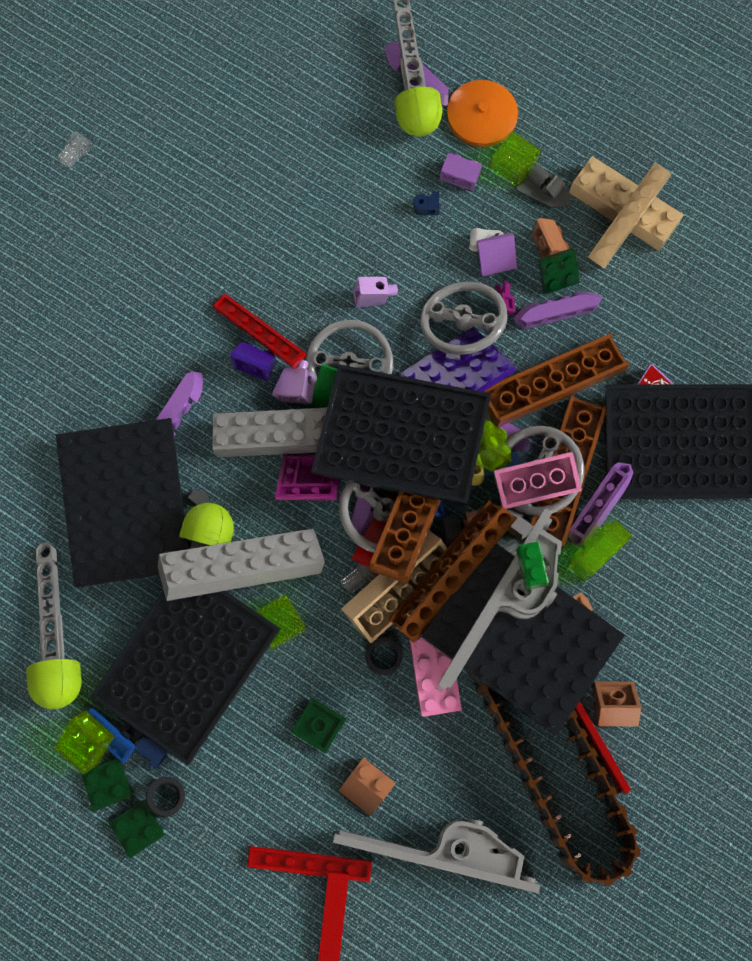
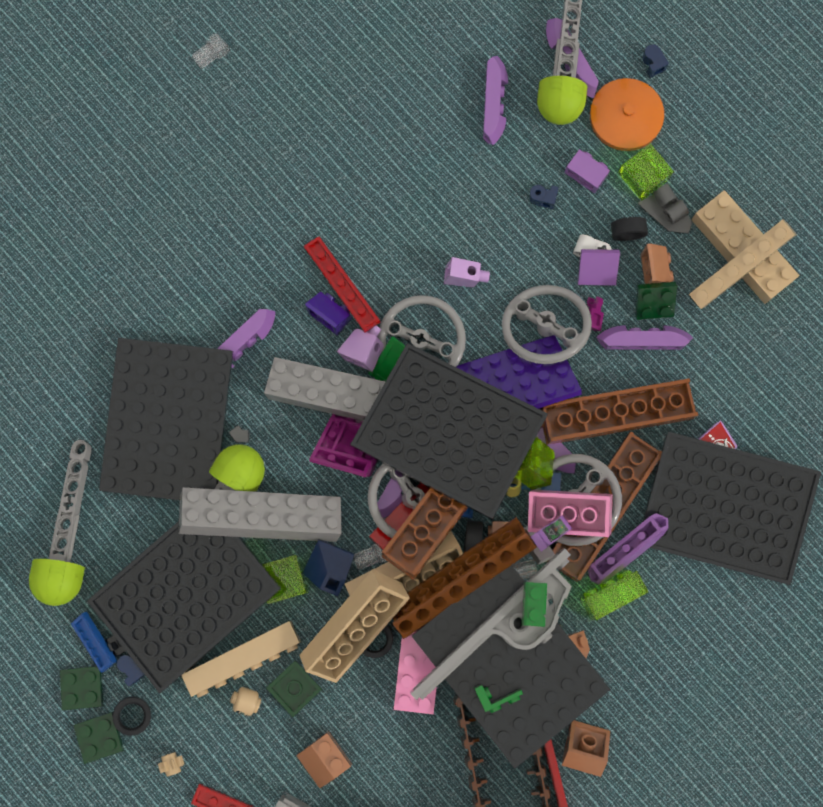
camera: 20 degrees right, 5 degrees up
(84, 742) = (69, 644): clear neon green piece -> none
(217, 833) = (171, 764): none -> tan gear
(258, 711) = (240, 659): none -> tan brick
(274, 751) = (245, 701): none -> tan head
(320, 598) = (328, 567): none -> dark blue slope
(352, 113) = (493, 121): none -> medium lavender brick
(362, 645) = (354, 626): none -> tan brick
(494, 58) = (655, 60): none -> dark blue leg
(507, 671) = (484, 696): none -> green bracket
(515, 212) = (629, 228): none -> black tyre
(526, 501) = (551, 533): none -> leg

